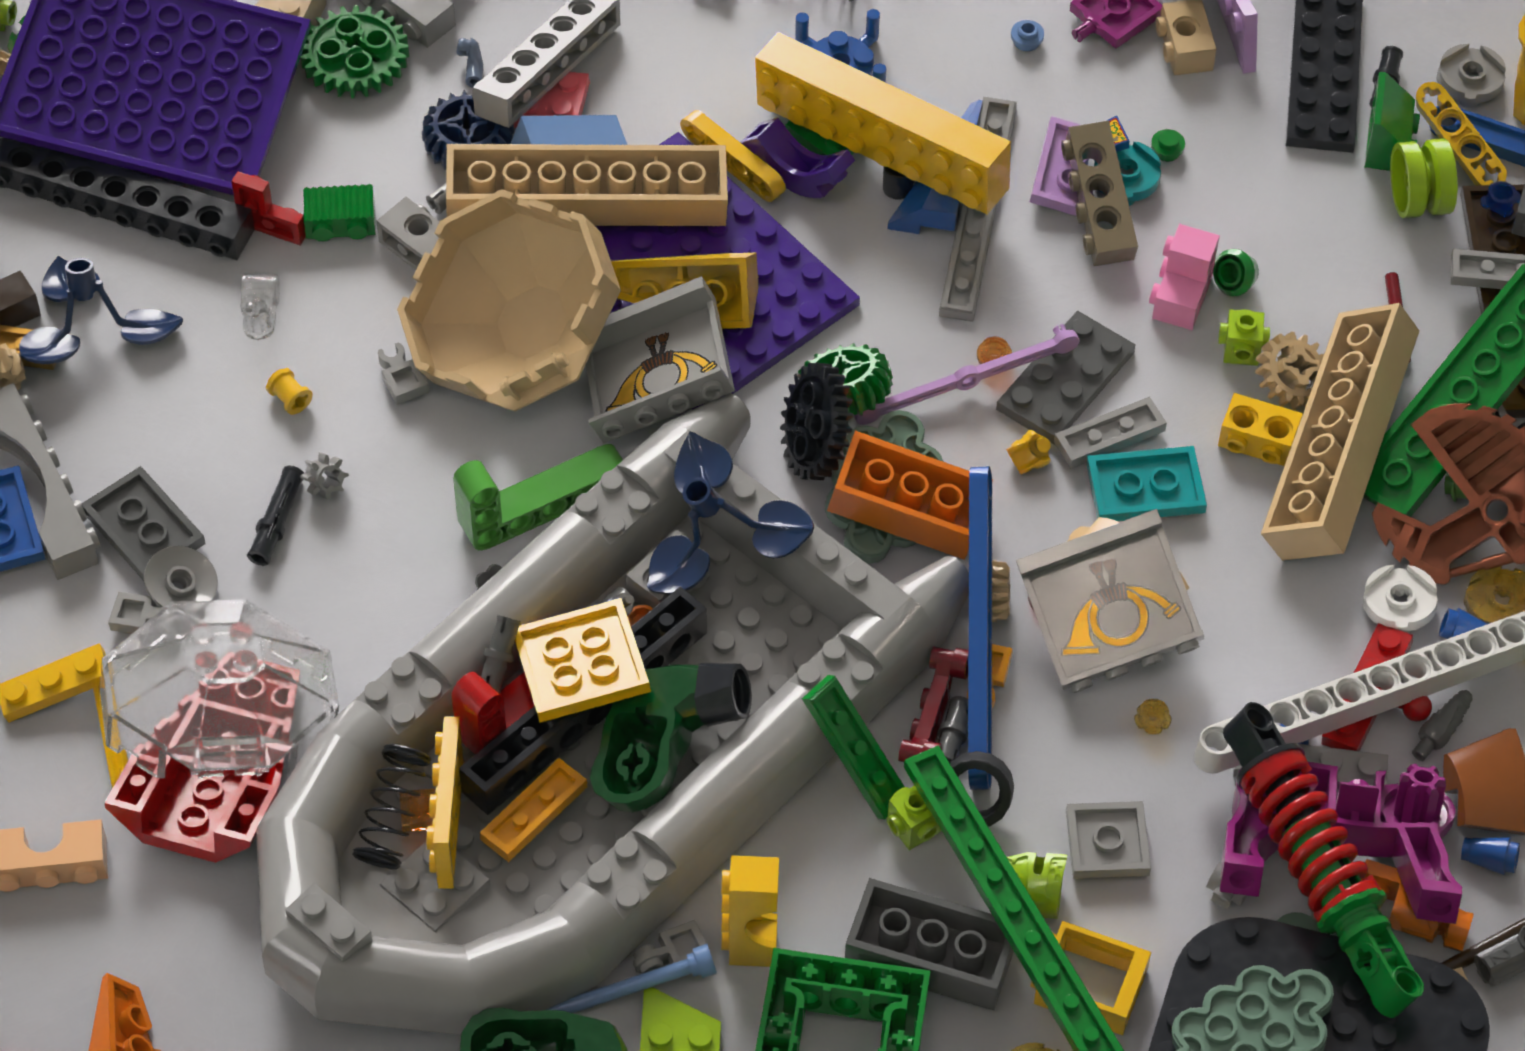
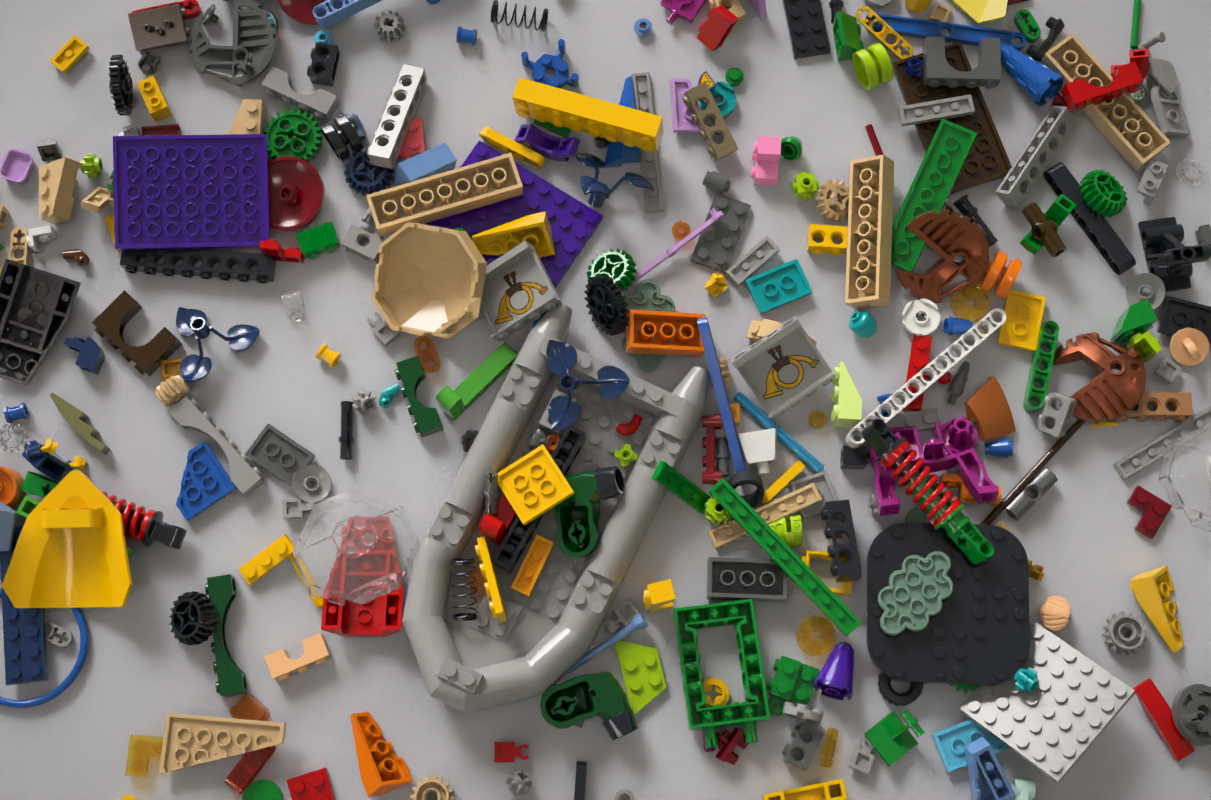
camera: 15 degrees left, 20 degrees up
(323, 129) = (294, 193): none -> dark red dish
(371, 479) = (387, 395): none -> teal arm
(425, 459) = (426, 418): none -> dark green arch
(438, 64) = (341, 137): none -> black wheel
(467, 434) = (428, 354): none -> clear orange plate
(765, 685) = (625, 460): none -> lime plate
(794, 635) = (629, 428): none -> red arm
(863, 256) = (599, 191): none -> dark blue plant
(1028, 730) = (760, 448): none -> white torso
(1052, 802) = (783, 481): none -> yellow beam
(1064, 835) = (769, 513): none -> tan tile
(1072, 720) = (782, 435): none -> dark azure axle
(1083, 293) = (716, 182): none -> dark grey brick
(1134, 917) = (841, 511): none -> black brick
(1158, 57) = (717, 27): none -> red piece
(1203, 796) = (854, 457): none -> black brick
(1214, 685) = (846, 399): none -> yellowish green slope
(1286, 578) = (863, 324): none -> teal head

